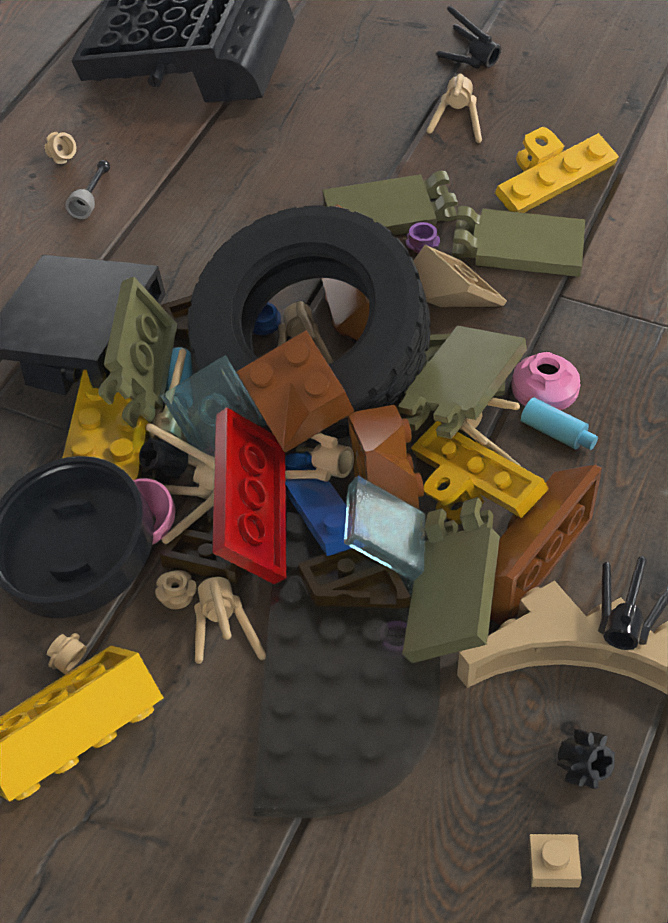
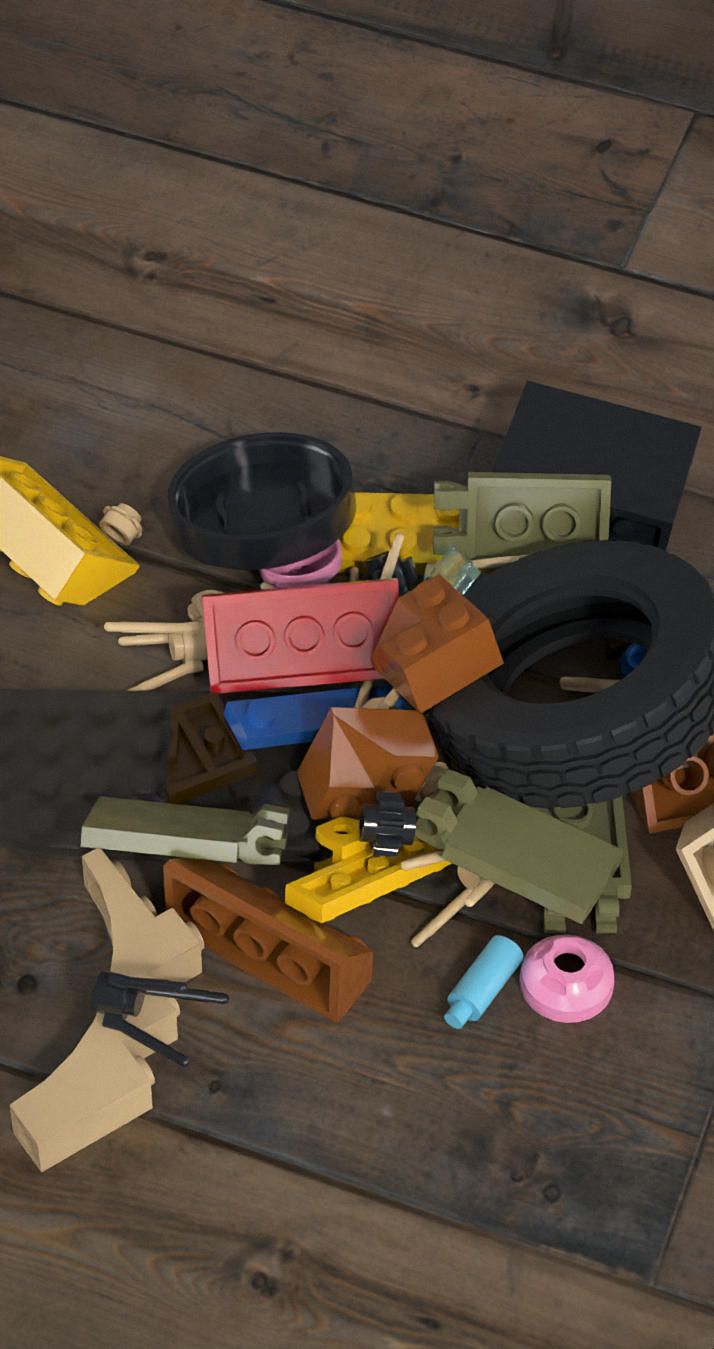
camera: 85 degrees right, 0 degrees up
(385, 528) = (257, 759): clear light blue tile -> none
(451, 446) = (387, 824): none -> black gear

